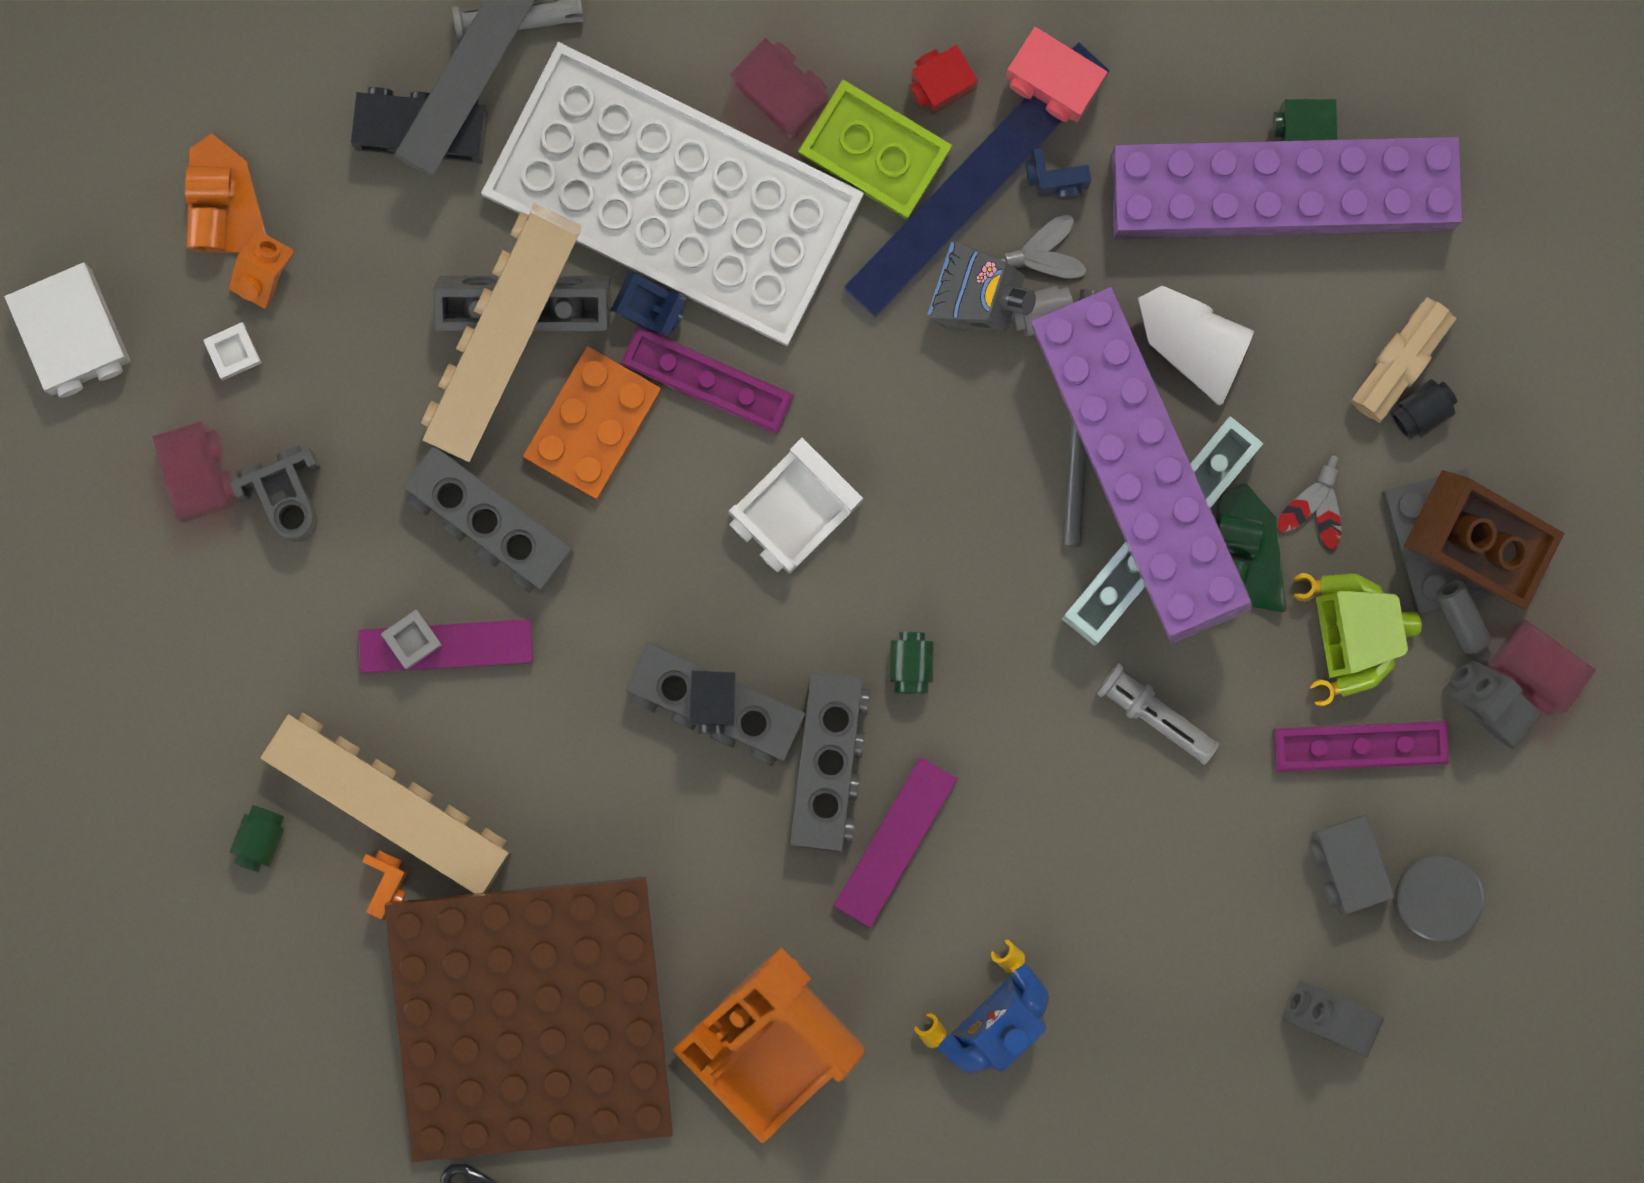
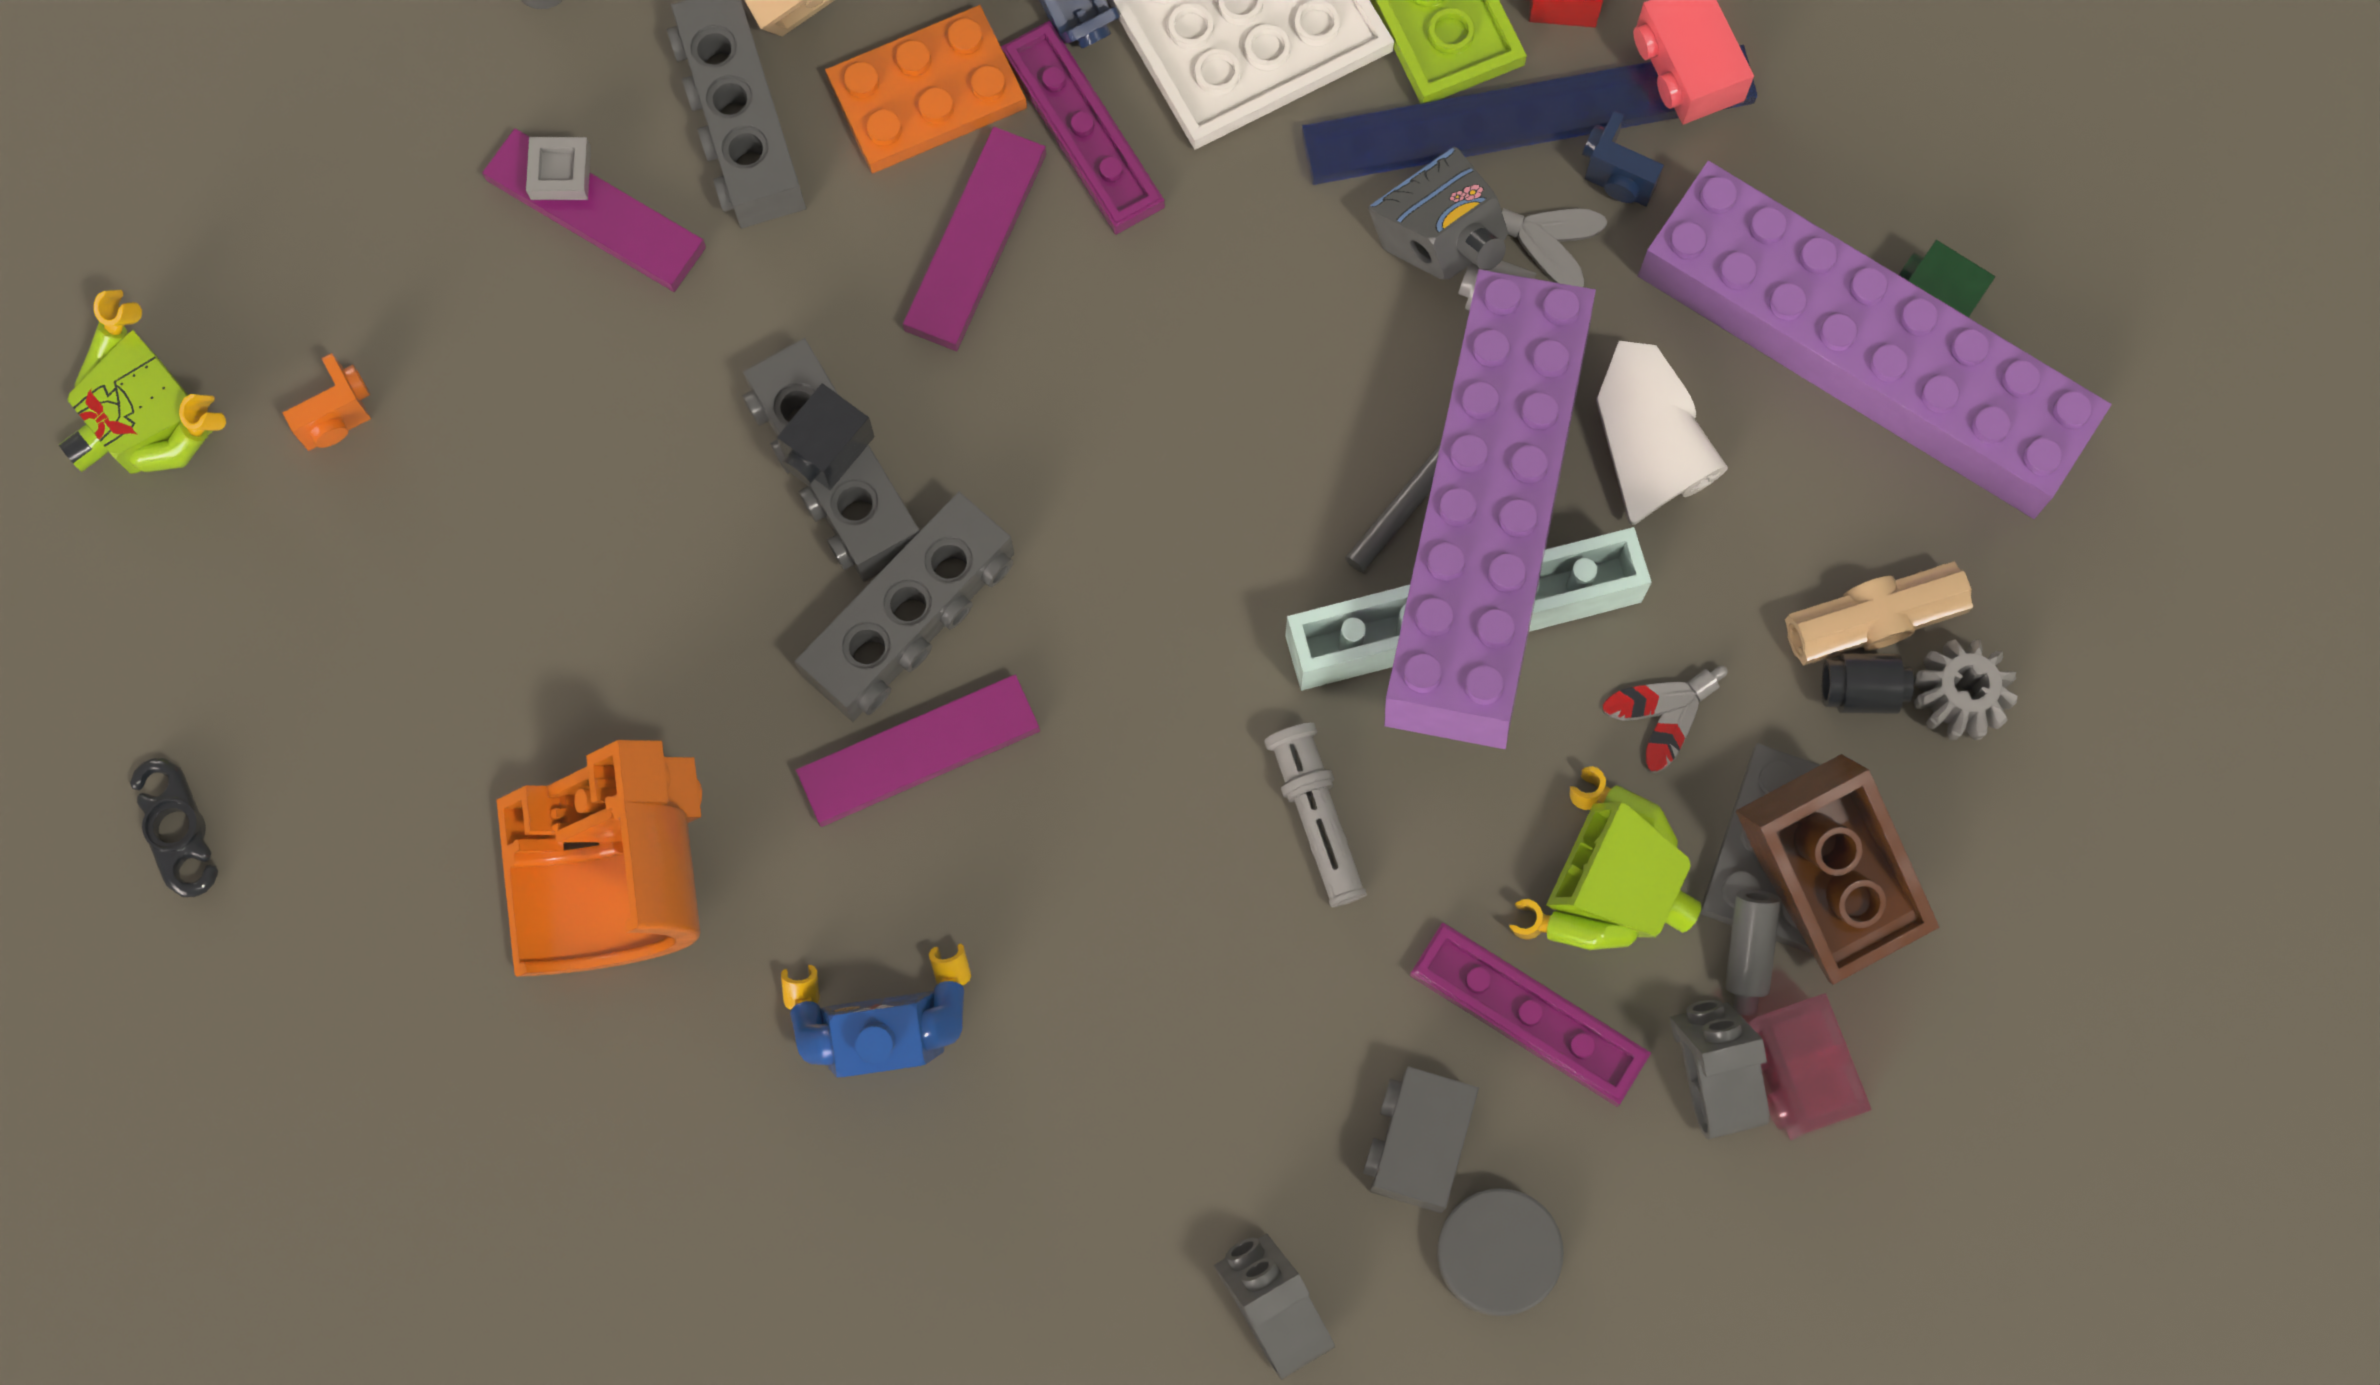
camera: 40 degrees right, 10 degrees down
(257, 838) = (238, 267): dark green brick -> none
(265, 968) = (133, 400): none -> lime torso
(385, 804) = (399, 325): tan brick -> none
(529, 1019) = (367, 655): reddish brown plate -> none
(694, 499) = (974, 239): none -> magenta tile
(794, 508) = (1076, 318): white panel -> none
(911, 663) = (1080, 565): dark green brick -> none
(1254, 546) = (1555, 706): dark green panel -> none
(1478, 358) = (1973, 672): none -> light grey gear

